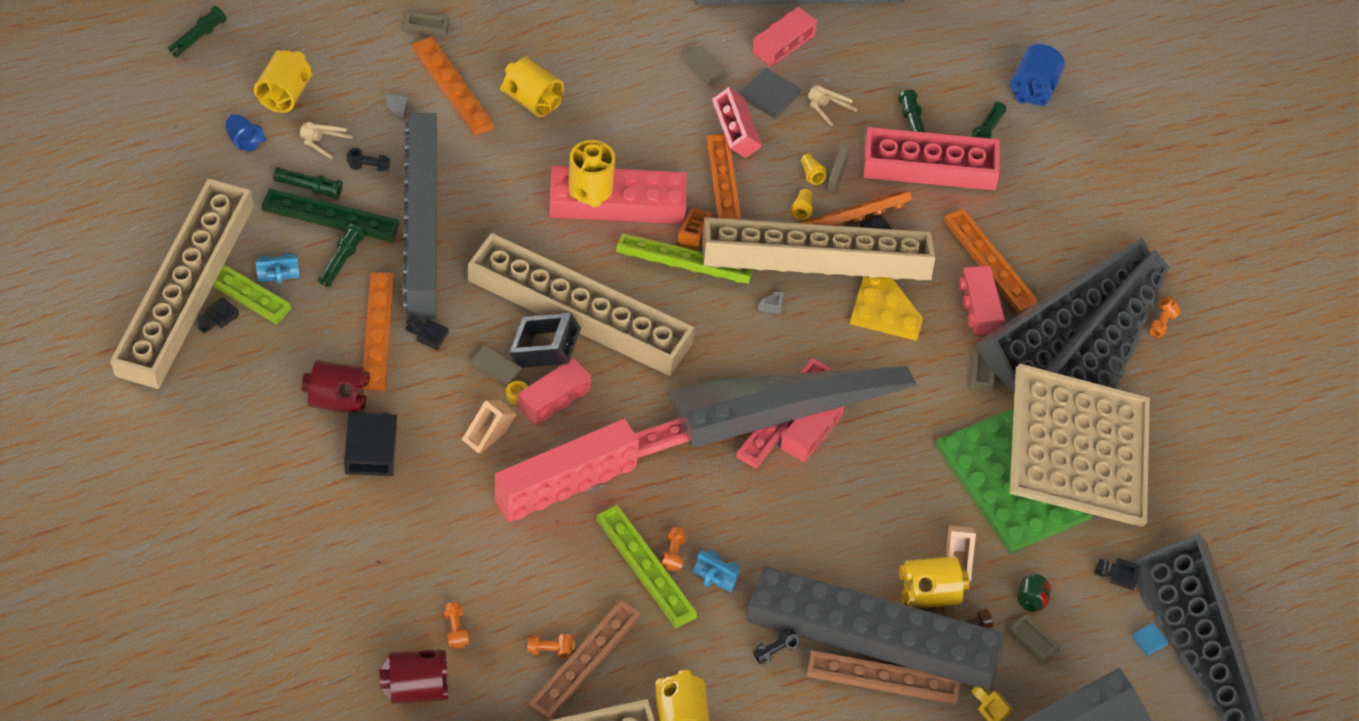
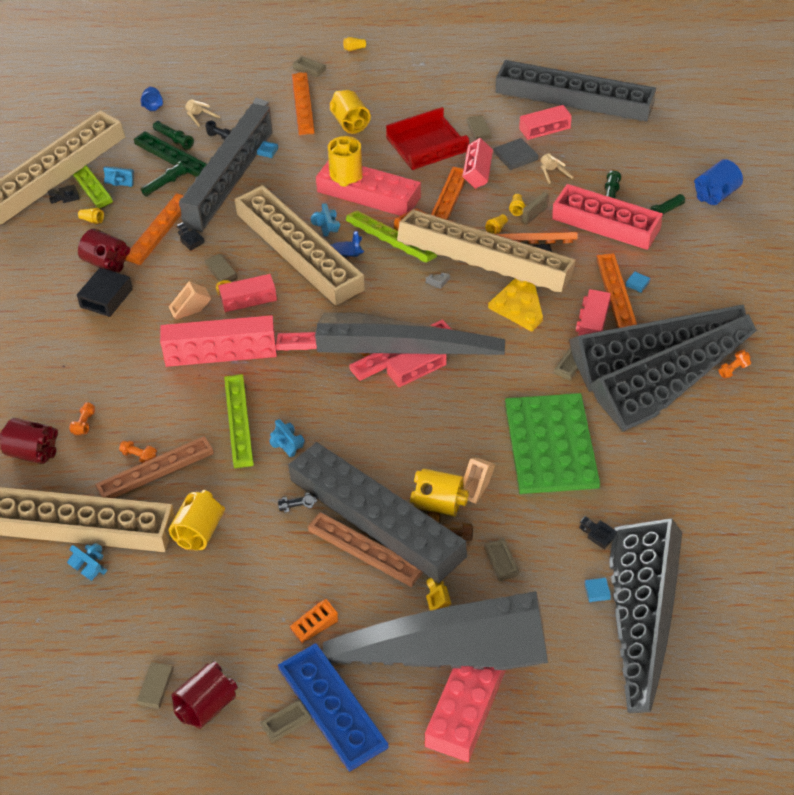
camera: 30 degrees right, 5 degrees down
(204, 26) = (170, 38): dark green pin -> none
(277, 337) = (91, 215): none -> yellow cone
(283, 81) = (192, 74): yellow cylinder -> none
(448, 170) = (267, 149): none -> dark azure tile
(558, 353) = (256, 257): black window -> none
(588, 257) = (326, 220): none -> dark azure hips
(643, 289) = (349, 249): none -> blue piece
(647, 102) = (426, 139): none -> red panel
(670, 559) = (259, 422): orange bar -> none
(1005, 238) = (637, 282): none -> dark azure tile
(1034, 593) = (519, 526): dark green head -> none
(1080, 445) = (610, 430): tan plate -> none

